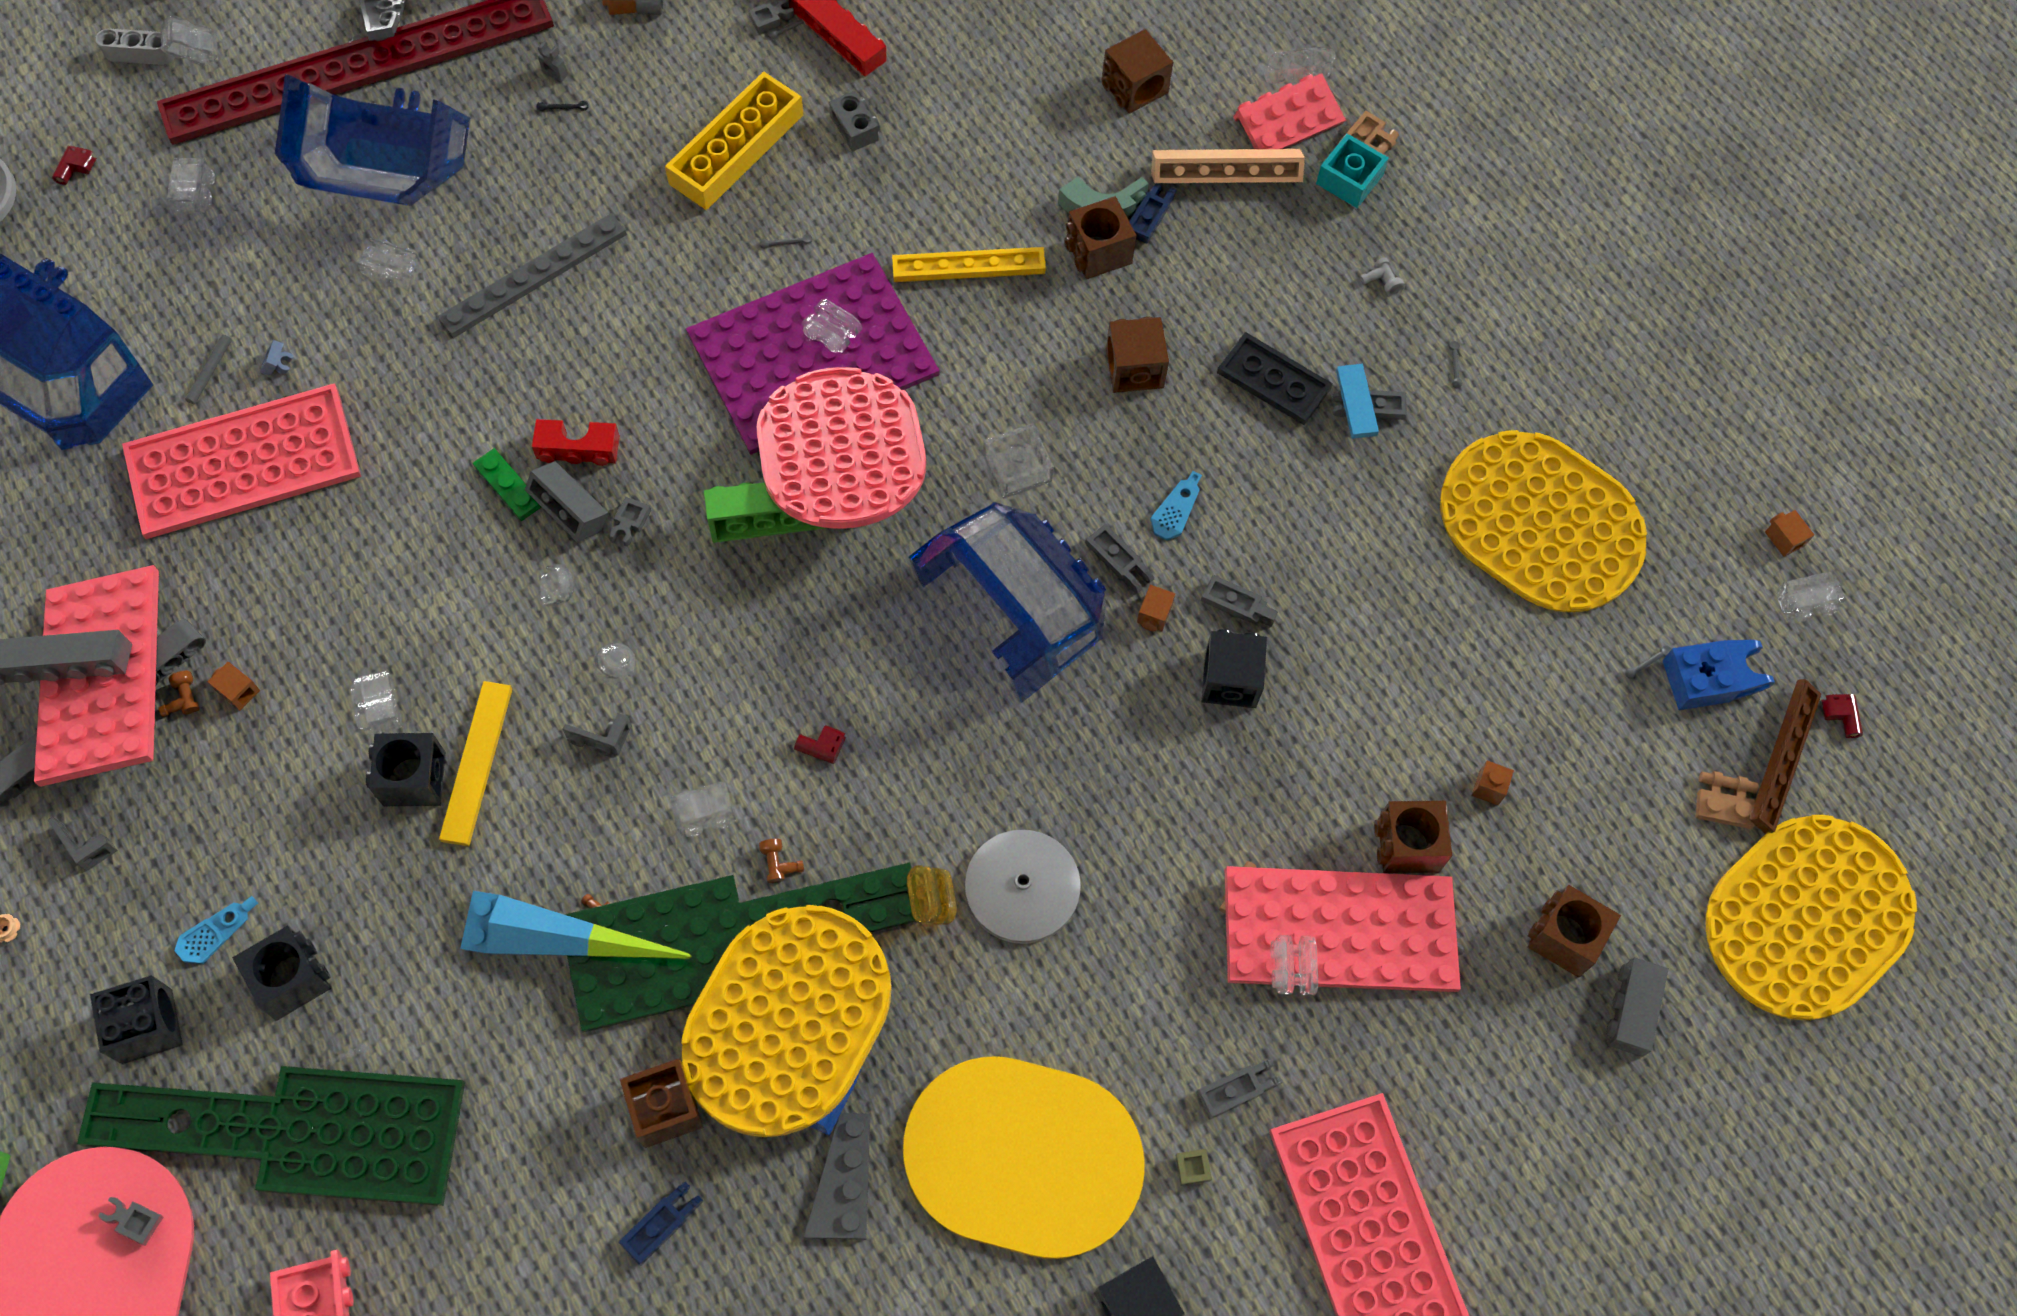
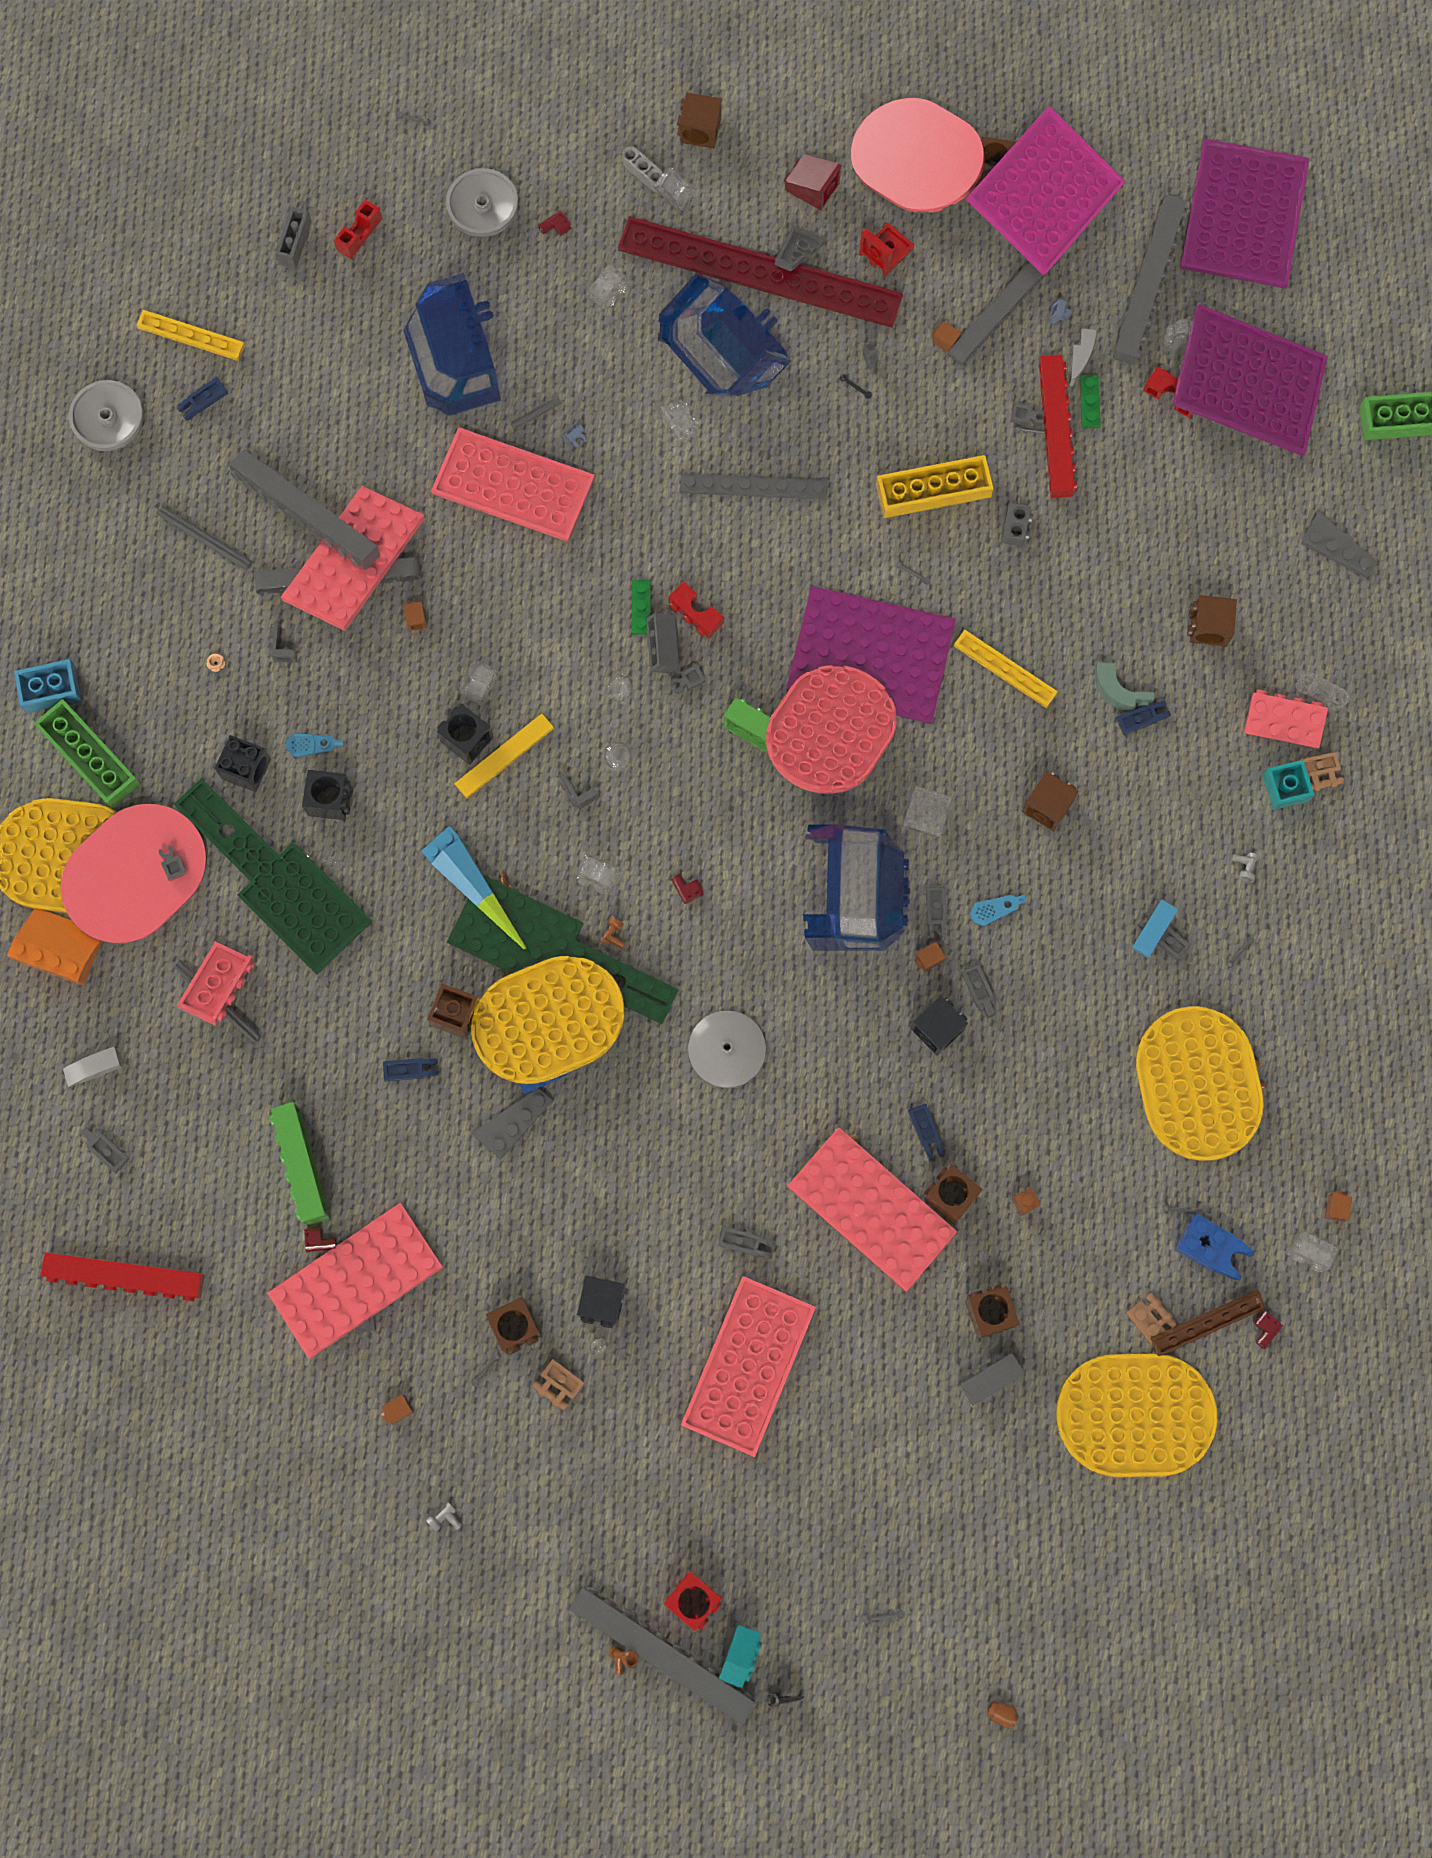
camera: 45 degrees right, 10 degrees up
(181, 681) = (391, 593): dark orange piece -> none
(831, 326) = (885, 659): clear brick -> none
(931, 895) = (674, 1015): clear yellow brick -> none
(1023, 1157) = (610, 1185): yellow tile -> none
(1102, 220) = (1102, 699): reddish brown brick -> none
(1193, 1167) = (688, 1261): olive plate -> none
(1227, 166) = (1214, 723): light nougat brick -> none
(1274, 378) = (1121, 876): black plate -> none
(1284, 977) = (824, 1193): clear brick -> none
(1319, 795) = (925, 1129): none -> dark blue hinge

